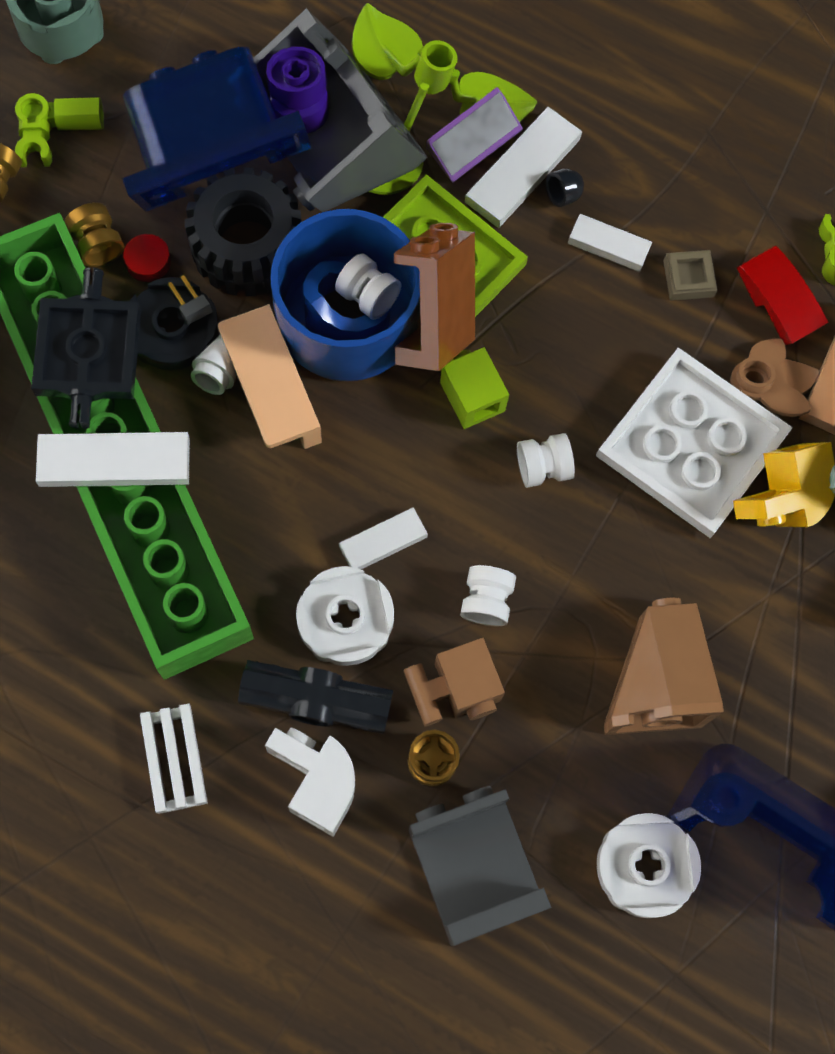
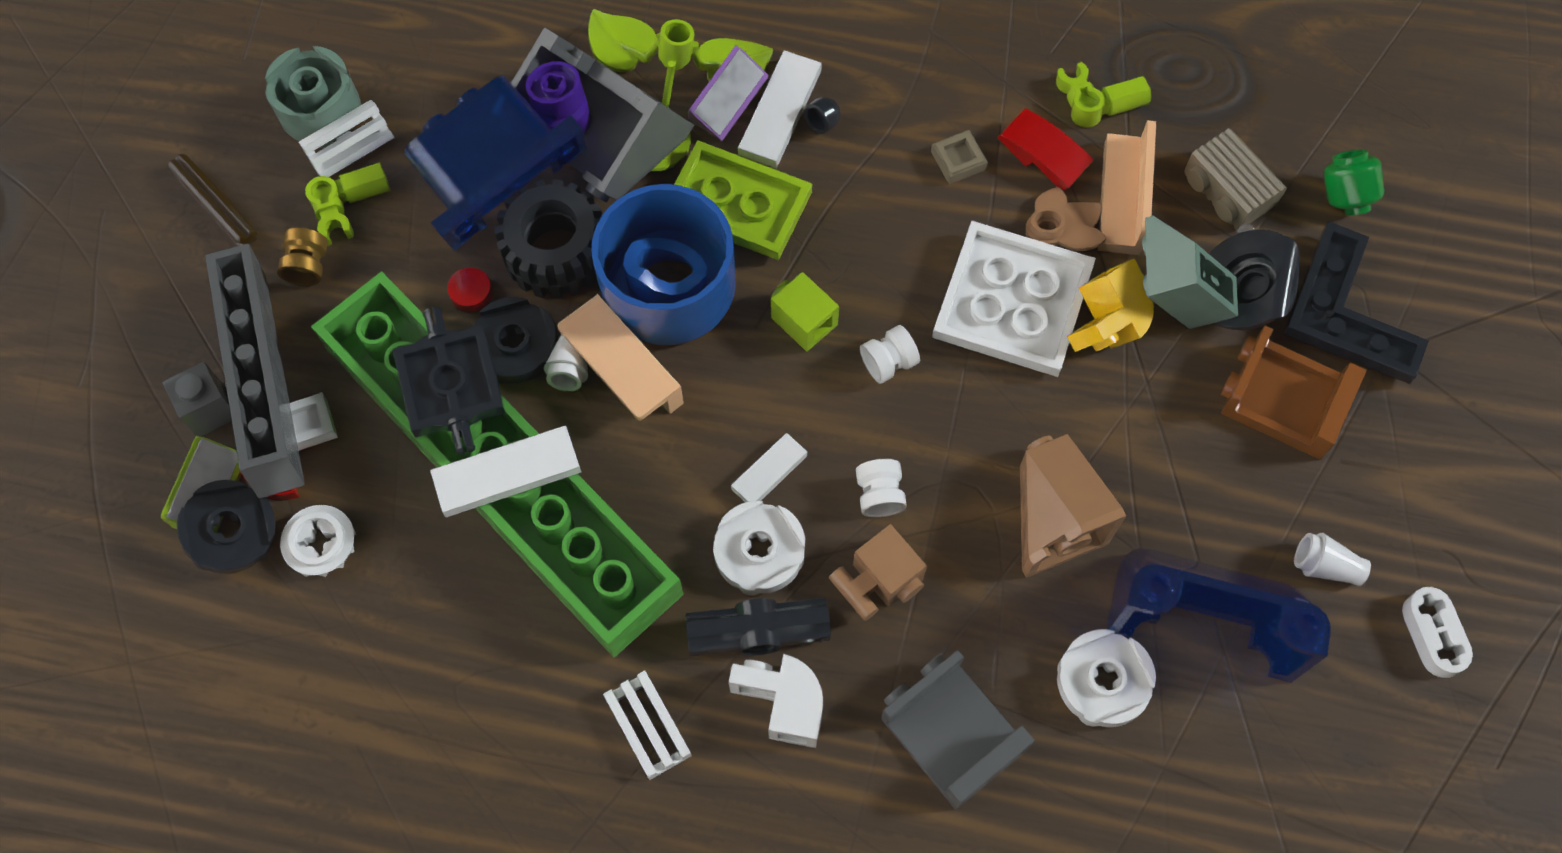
camera: 10 degrees left, 5 degrees down
(77, 70) = (350, 145): none -> white tile
(92, 229) = (416, 283): pearl gold wheel -> none
(193, 309) = (530, 320): dark grey piece -> none
(368, 286) = (682, 250): white wheel -> none
(434, 749) = (882, 636): pearl gold wheel -> none
(446, 296) = (756, 236): dark orange panel -> none
(609, 242) = (879, 150): white piece -> none

